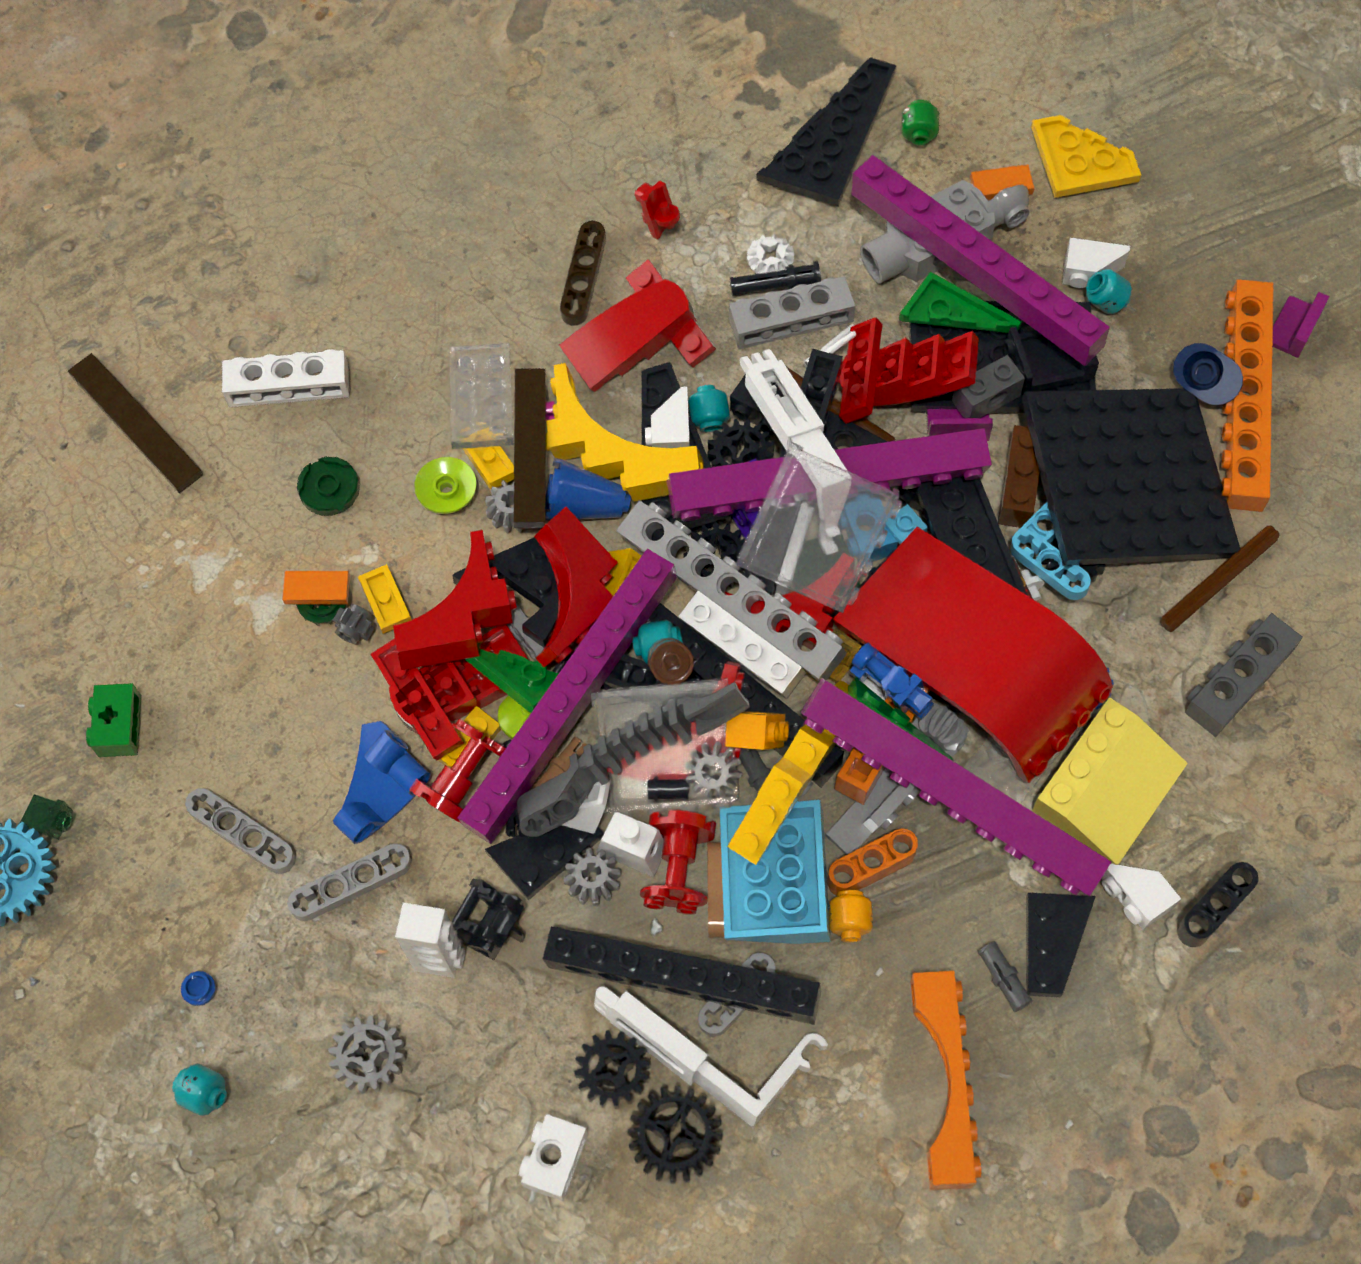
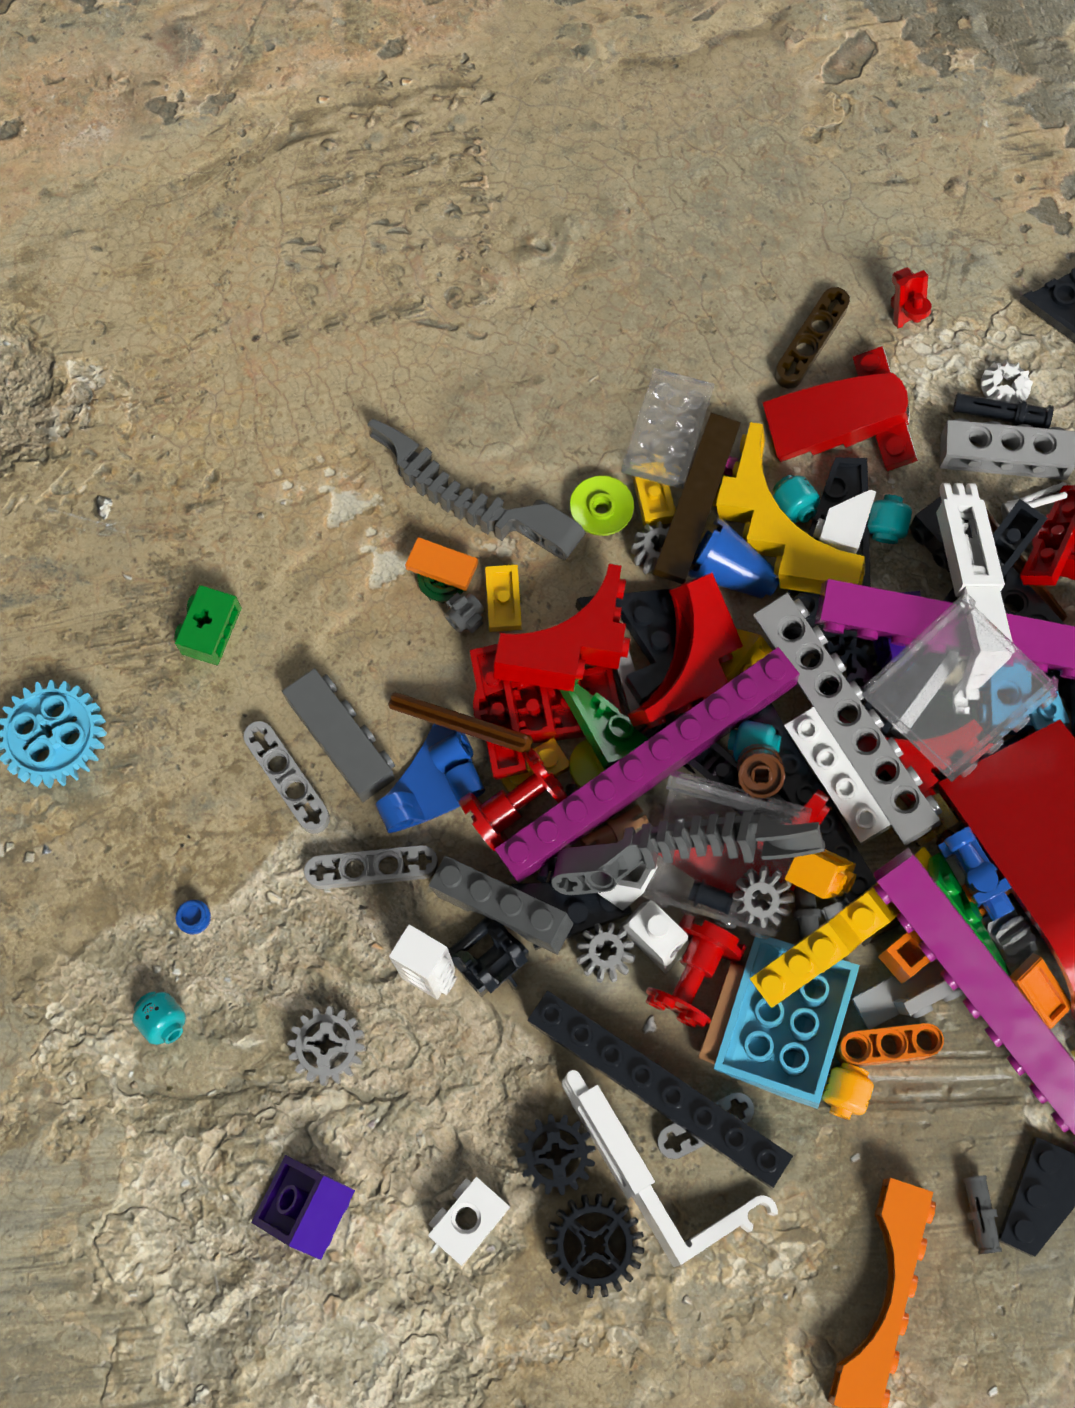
camera: 20 degrees right, 5 degrees up
(48, 816) = (114, 695): clear green bracket -> none
(135, 423) = (330, 339): dark brown tile -> none
(276, 774) = (339, 735): none -> dark grey brick
(299, 386) = (496, 357): white brick -> none
(328, 486) = (489, 465): dark green tile -> none
(384, 720) = (460, 722): none -> reddish brown axle
(392, 520) = (537, 522): none -> dark grey piece
(397, 1205) = (303, 1207): none -> dark purple slope
(512, 868) = (513, 908): none -> dark grey arch
(619, 417) = (796, 498): none -> teal head
(730, 441) = (897, 560): black gear -> none
(984, 762) = (1041, 989): none -> orange tile

